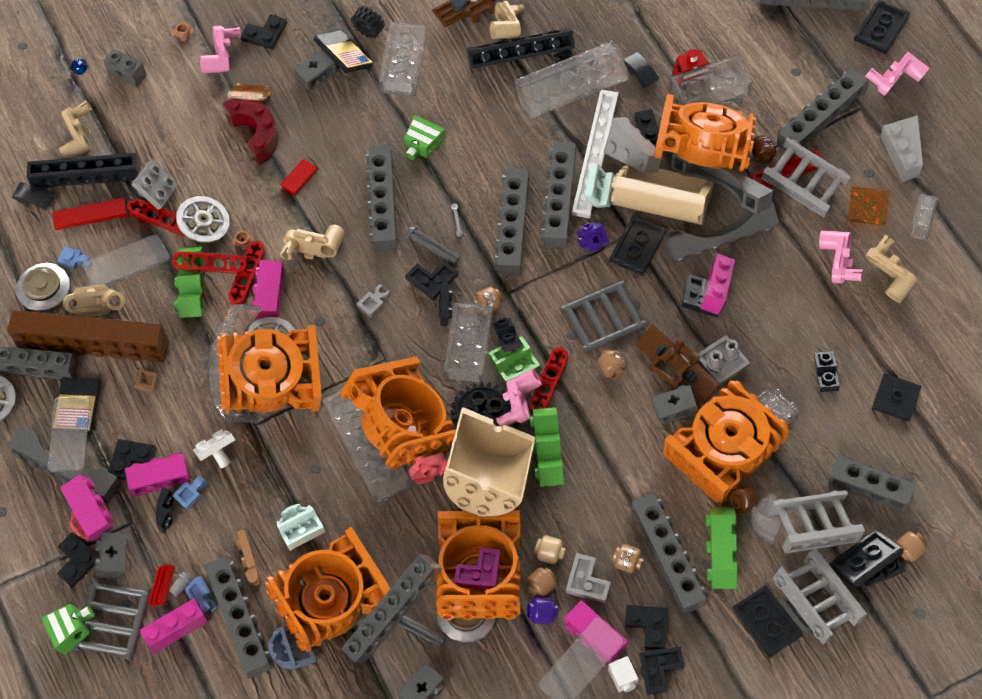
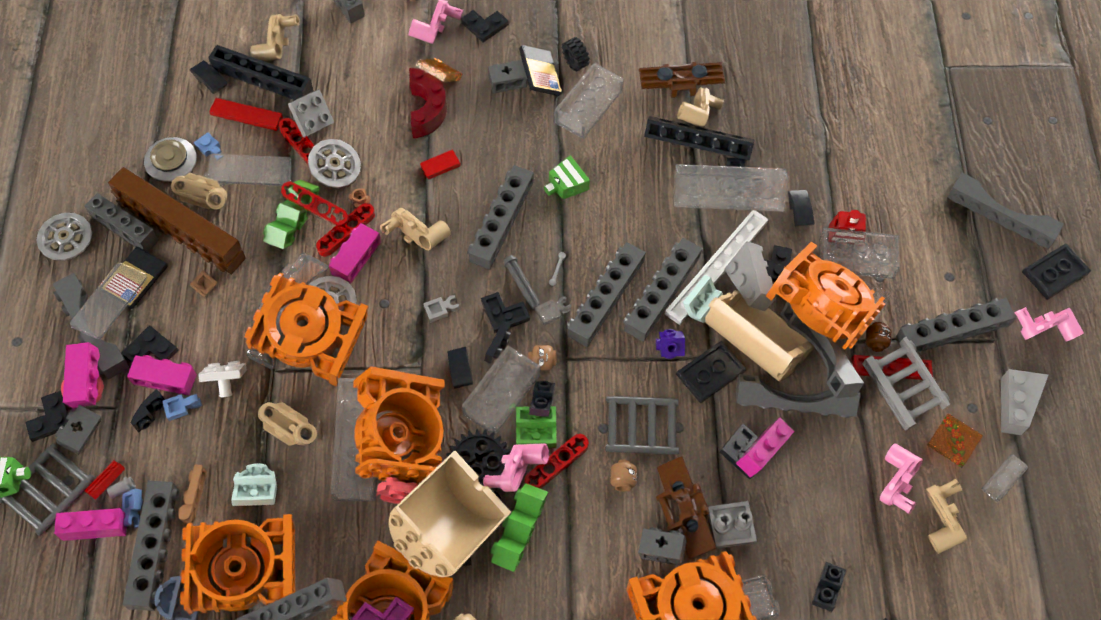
camera: 20 degrees right, 0 degrees up
(298, 460) = (286, 424): none -> tan piece
(420, 342) = (460, 367): none -> black slope
(473, 258) = (551, 311): none -> clear plate

